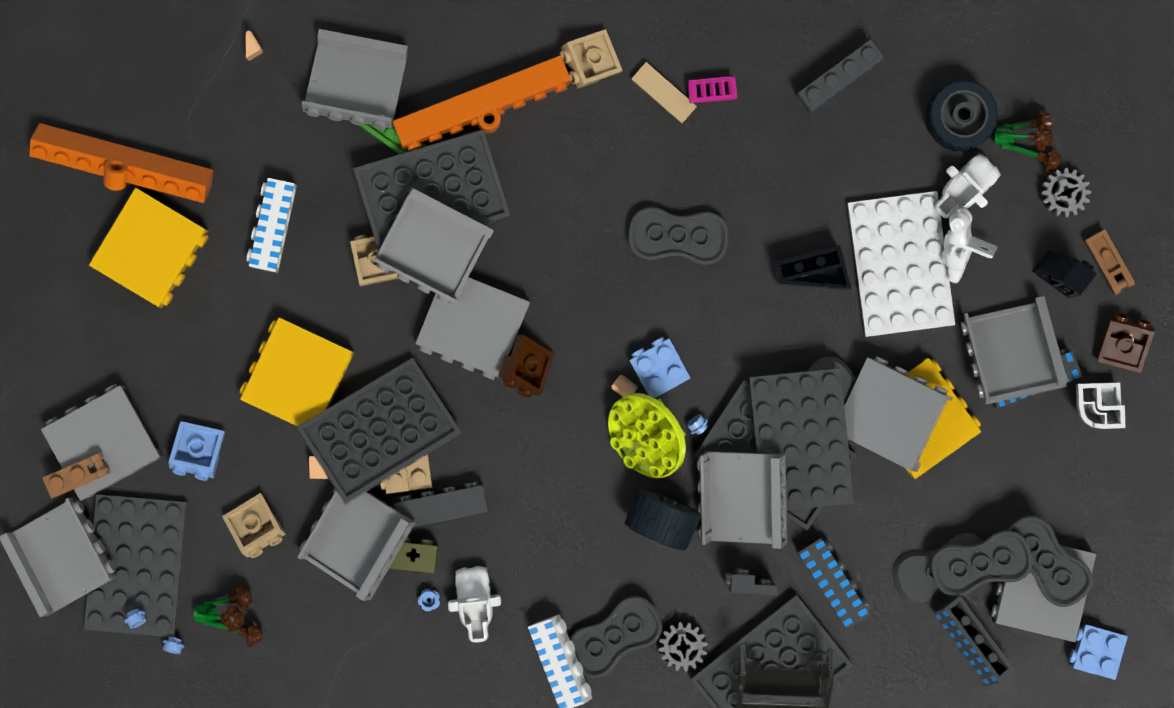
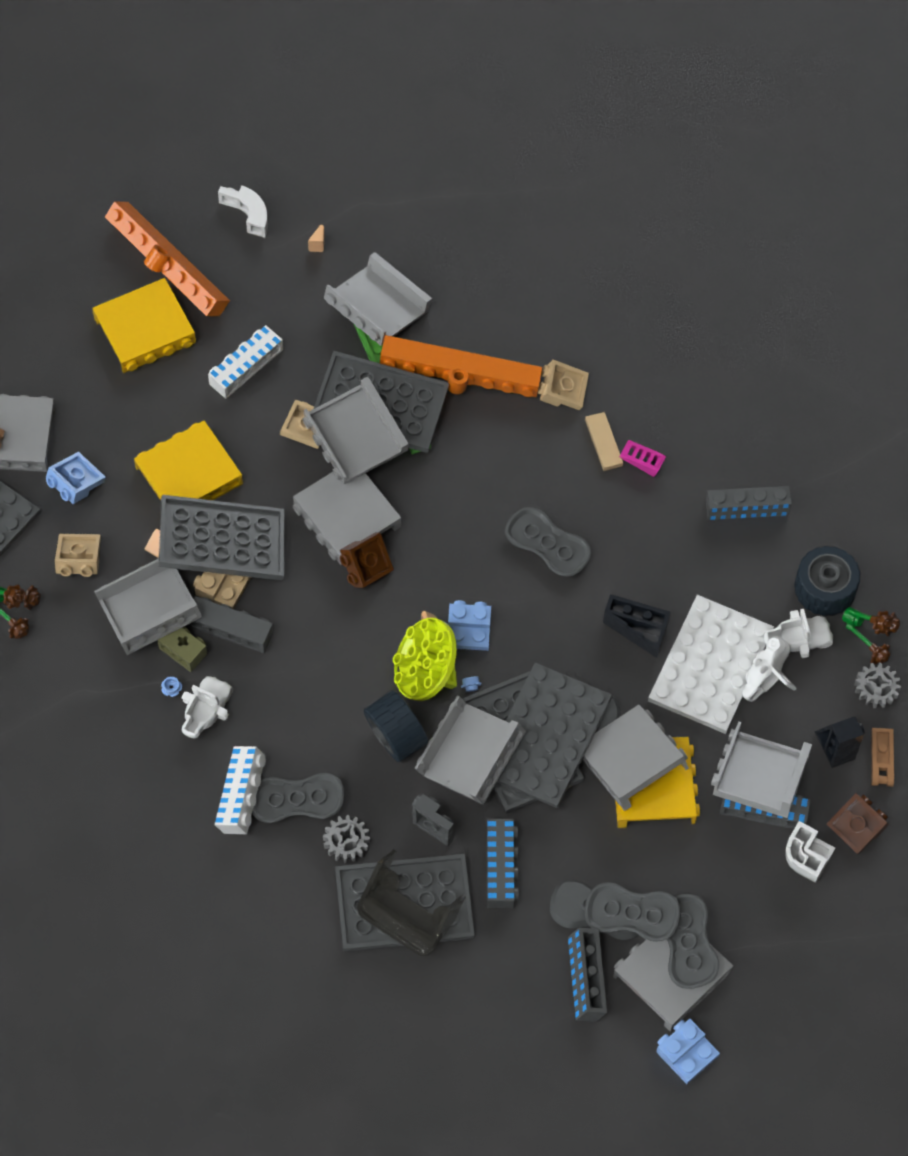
camera: 30 degrees right, 25 degrees down
(162, 47) = (251, 204): none -> white arch

